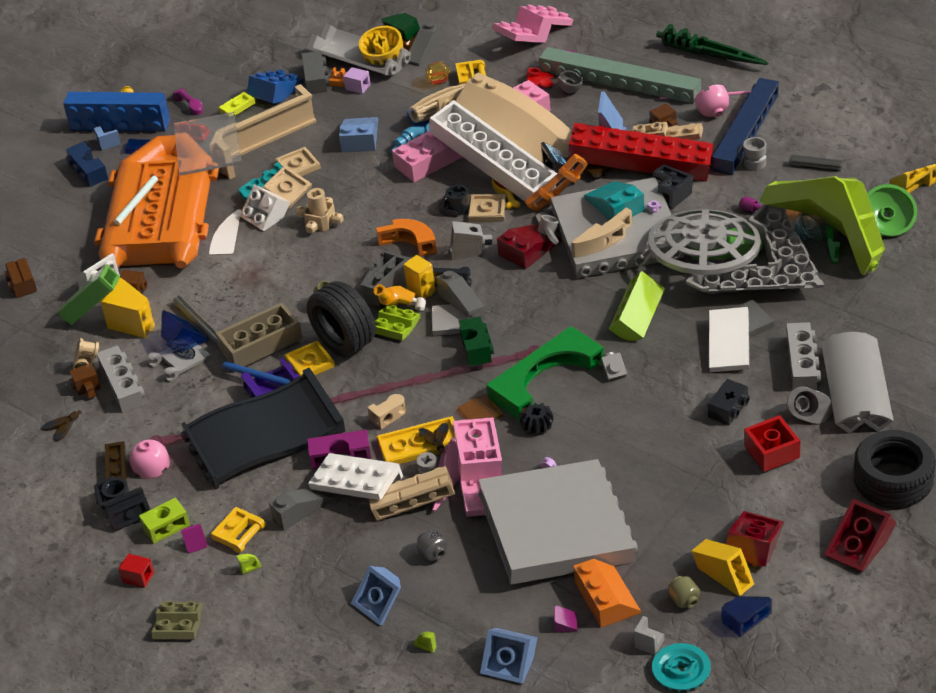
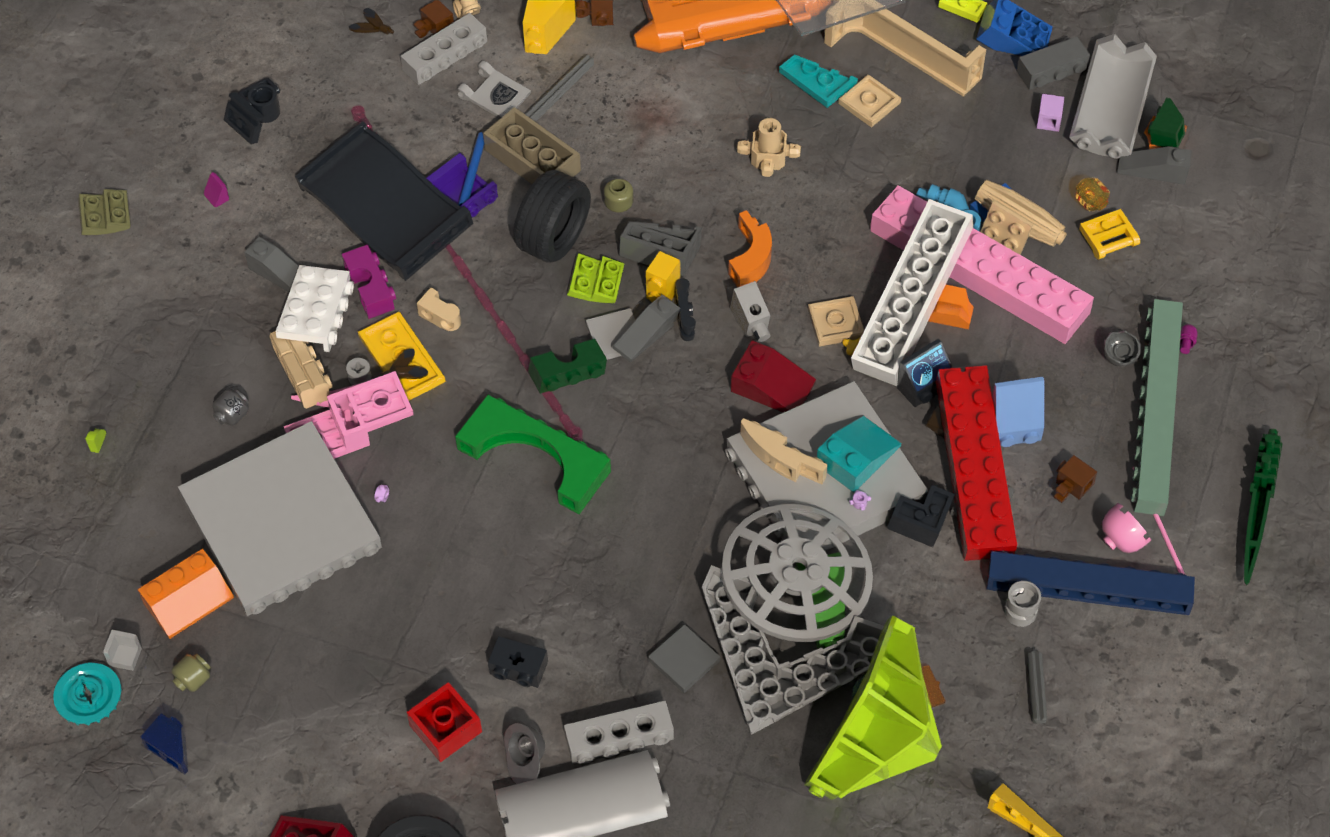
camera: 70 degrees right, 15 degrees up
(115, 460) = (312, 89): dark brown plate -> none
(136, 570) = (162, 155): red brick -> none
(149, 459) = (327, 114): bright pink cylinder -> none
(164, 520) = (236, 156): lime brick -> none
(179, 332) = (525, 77): clear blue slope -> none
(225, 236) = (719, 70): white sticker -> none
(233, 525) = (235, 218): yellow plate -> none
(248, 563) = (187, 248): lime tile -> none
(264, 208) = (766, 91): white slope -> none
(288, 185) = (811, 101): tan tile -> none
(310, 356) = (504, 212): yellow tile -> none
(337, 78) = (1056, 88): orange tile -> none
(358, 134) = (945, 144): medium blue slope -> none
(377, 593) = (157, 375): medium blue slope -> none
(379, 40) = (1115, 109): yellow gear -> none
(398, 294) = (629, 263): light orange arm -> none
(456, 200) = (833, 281): black piece -> none
(480, 408) = (460, 403): clear orange piece -> none
(508, 654) = (84, 519): medium blue slope -> none
(514, 115) = (991, 294): tan slope -> none
(532, 23) = (1232, 274): bright pink bracket -> none
(536, 418) = (452, 462): black gear -> none
(539, 78) = (1124, 316): red plate -> none
(547, 192) = (872, 380): orange bar -> none
(547, 225) = (795, 396): light grey piece -> none
(565, 620) = (143, 563): magenta slope -> none
(613, 366) = (561, 522): light grey bracket -> none
(637, 308) = (671, 527): lime brick -> none
(690, 131) = (1039, 488): tan slope -> none
(724, 564) = (235, 705): yellow slope -> none
(728, 339) = (634, 642): white tile -> none
(749, 204) = (918, 618): magenta cylinder -> none
(755, 537) = (291, 731): dark red slope -> none
(898, 204) = (919, 792): bright green dish -> none

